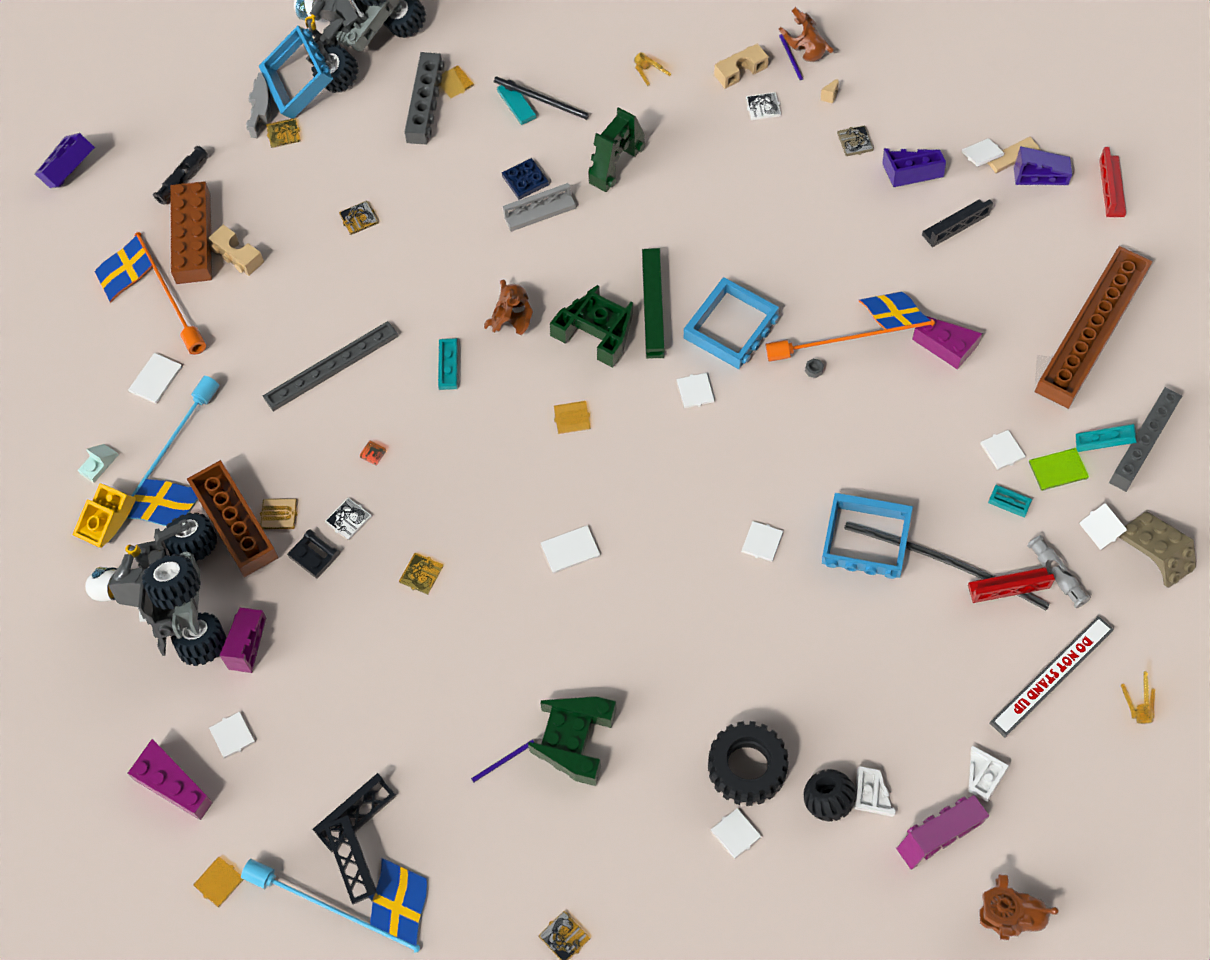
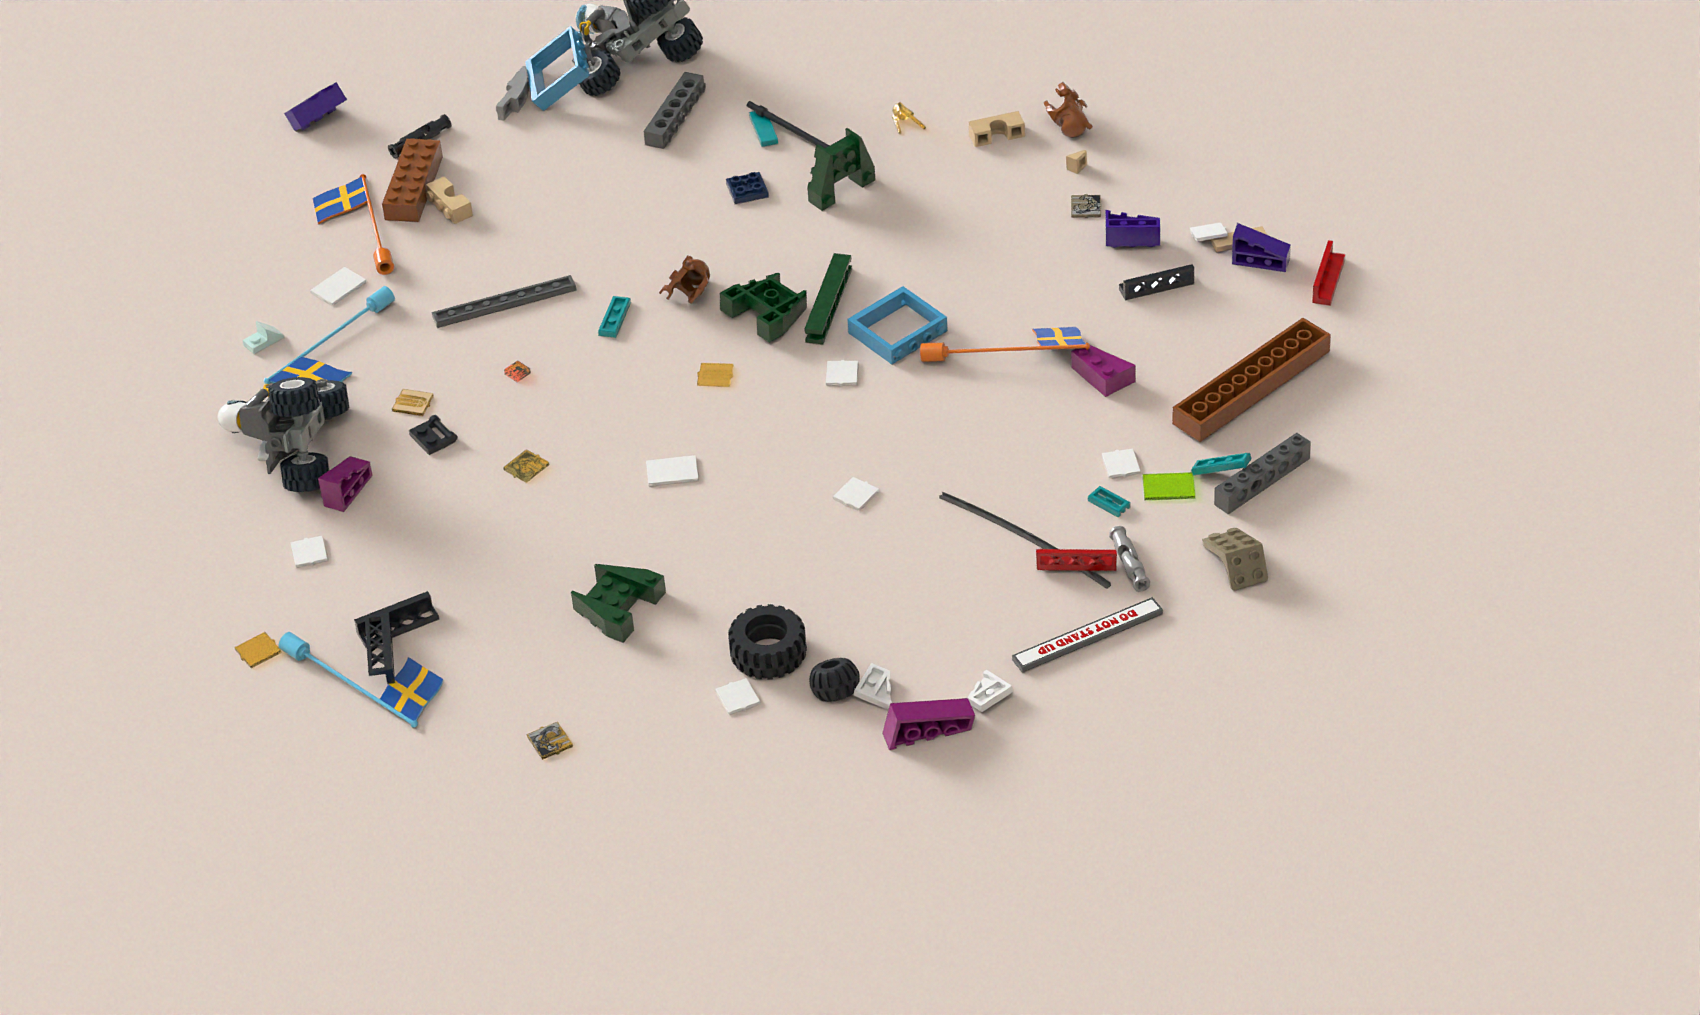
camera: 15 degrees right, 20 degrees down
(103, 515) = (254, 373): yellow slope -> none
(165, 778) = (240, 569): magenta wedge -> none
(232, 518) = (368, 393): dark orange brick -> none
(283, 132) = (530, 119): clear yellow piece -> none
(348, 518) = (475, 416): piece -> none
(358, 217) = (575, 195): piece -> none
(455, 82) = (711, 104): clear yellow piece -> none
(500, 762) = (541, 611): dark purple axle -> none
(539, 209) = (750, 212): light grey fence -> none
(763, 106) = (1006, 165): piece -> none
(791, 57) = (1052, 135): dark purple axle -> none
(814, 368) = (963, 372): dark grey tile -> none
(874, 507) = (962, 478): dark azure window -> none
(1013, 911) = (963, 783): dark orange helmet -> none
(1103, 526) = (1189, 532): white piece -> none
(1144, 712) = (1161, 674): clear yellow plant -> none

